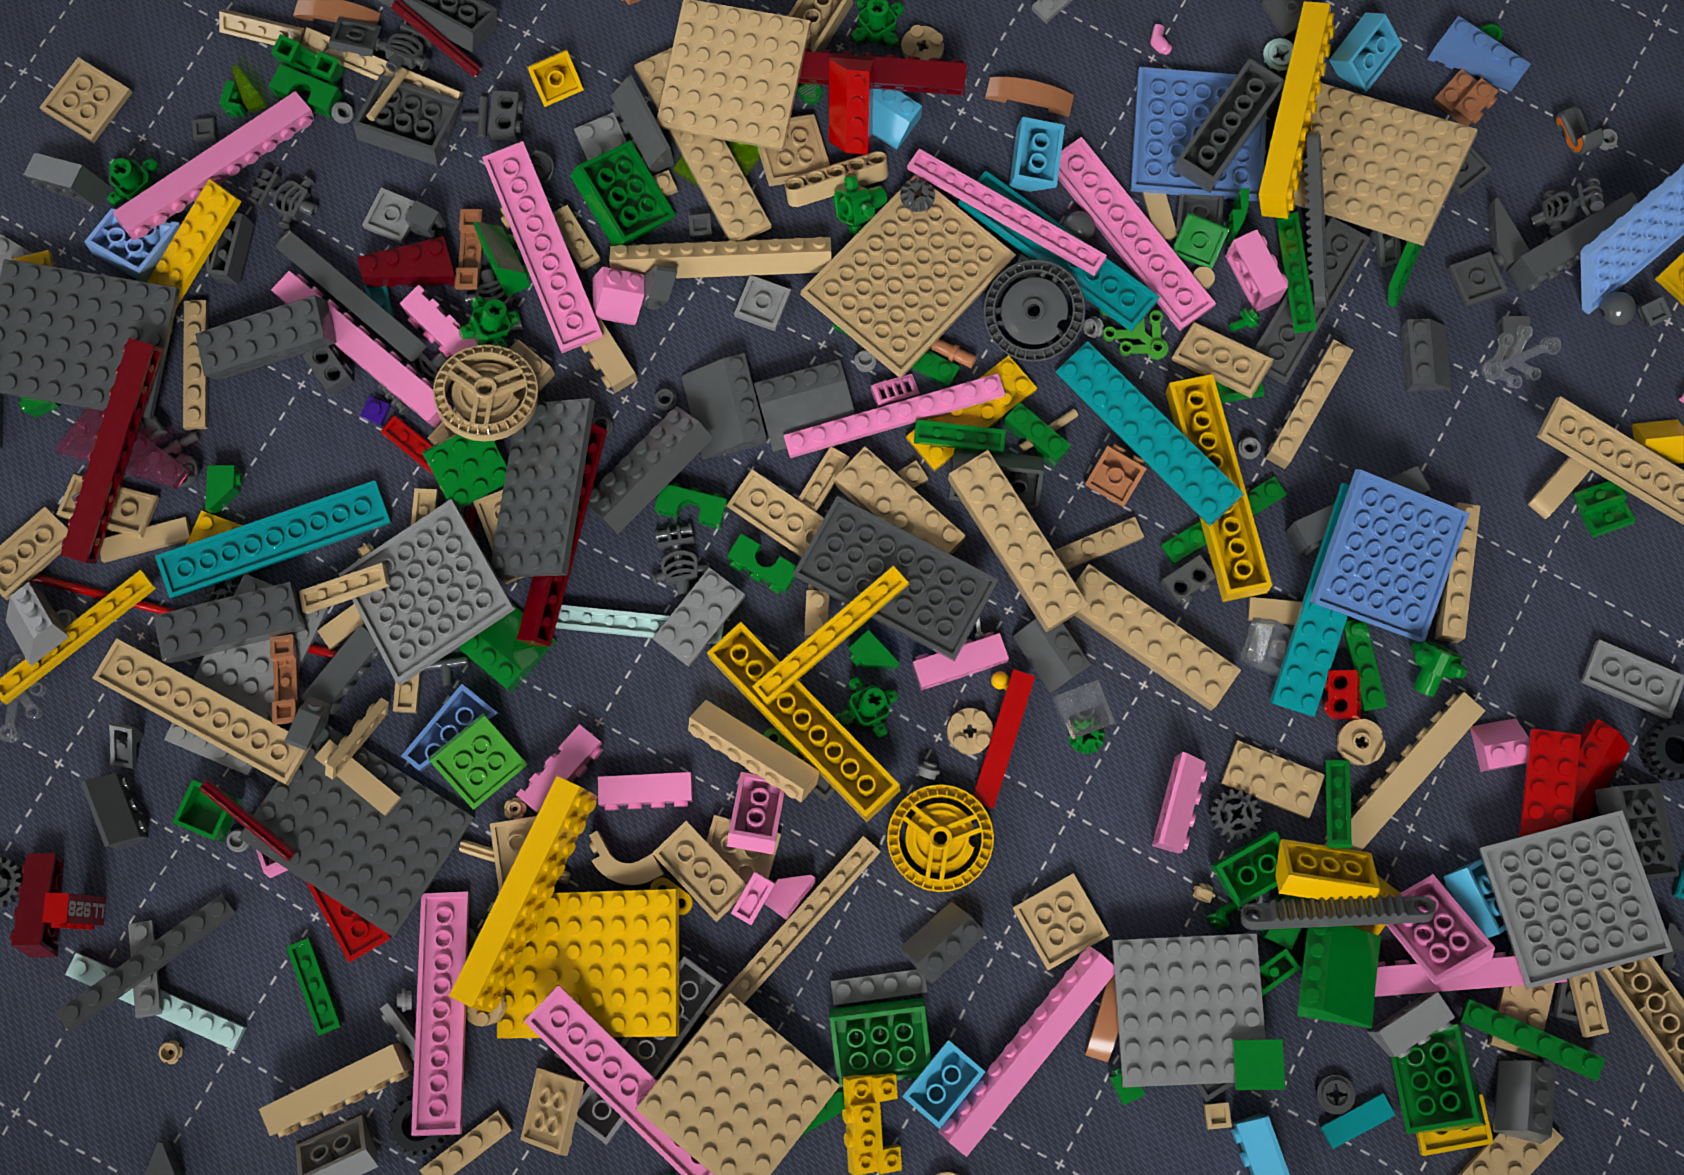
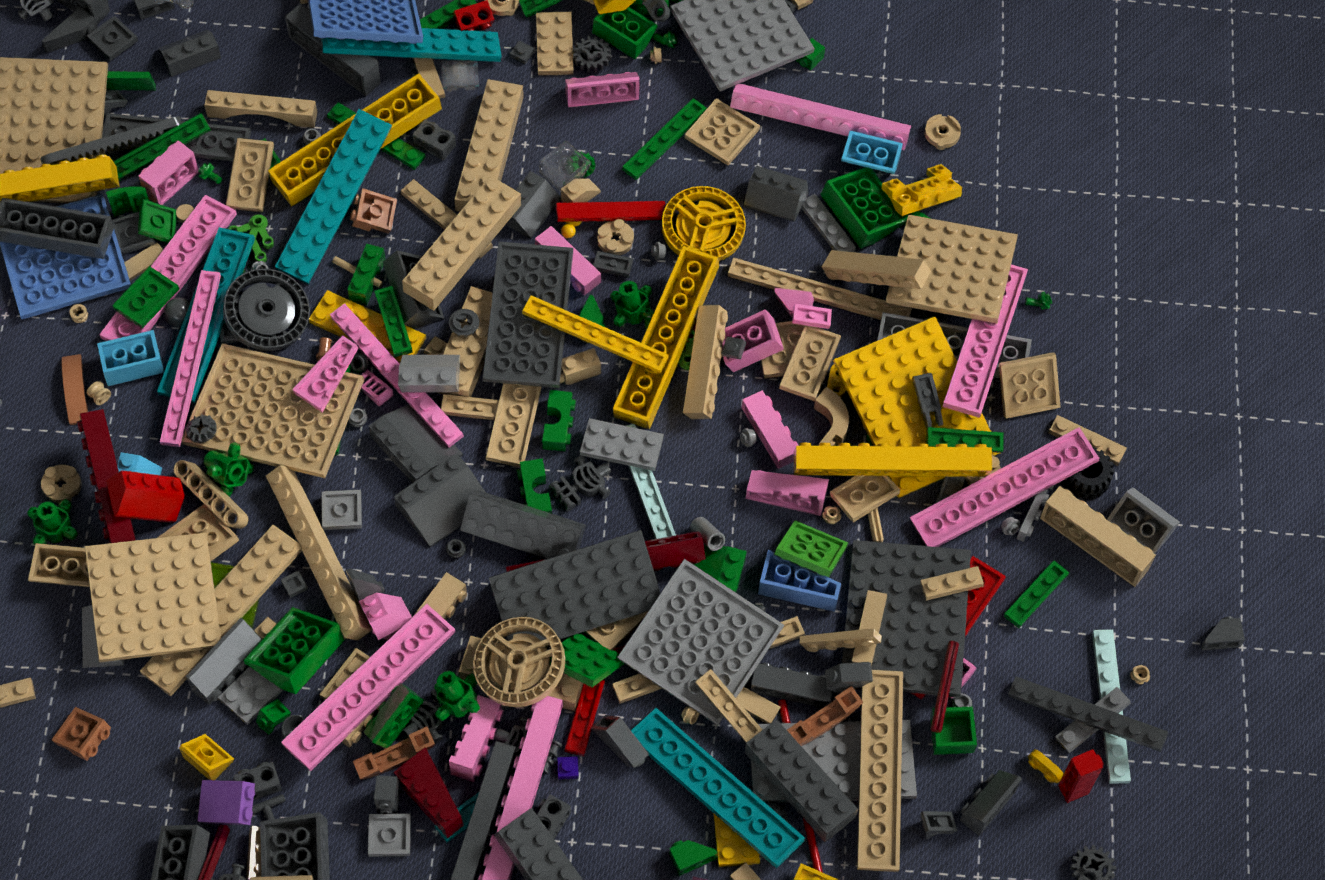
camera: 120 degrees left, 15 degrees down
(41, 875) = (1091, 823): dark red wedge -> none
(114, 892) = (1046, 766): none -> yellow plate
(360, 892) = (952, 583): none -> tan plate
(372, 465) = (620, 740): none -> dark grey slope
(491, 74) = (226, 802): none -> medium lavender brick
(519, 997) = (970, 437): none -> green plate
(549, 659) = (711, 536): none -> light grey pin
(567, 154) = (271, 716): none -> green bracket
(583, 975) = (927, 398): none -> dark grey hinge
(648, 761) = (748, 437): none -> light grey plate
(750, 787) = (733, 348): none -> dark grey plate
(772, 1001) = (876, 269): none -> tan brick
(869, 441) = (429, 373): none -> light grey slope
(915, 333) = (325, 376): none -> bright pink wing
(916, 493) = (460, 316): none -> dark grey gear
(929, 385) = (355, 365): none -> dark grey plate
(934, 711) = (613, 264): none -> dark grey plate
(1010, 114) = (98, 393): none -> tan wheel
(1046, 716) = (579, 191): none -> tan slope
(1079, 848) = (664, 139): none -> green plate
(1103, 194) = (145, 297): none -> green plate
(1106, 1025) = (777, 79): nougat slope -> none
(1120, 121) = (75, 310): none -> tan bush
(1274, 735) = (522, 52): none -> dark grey plate

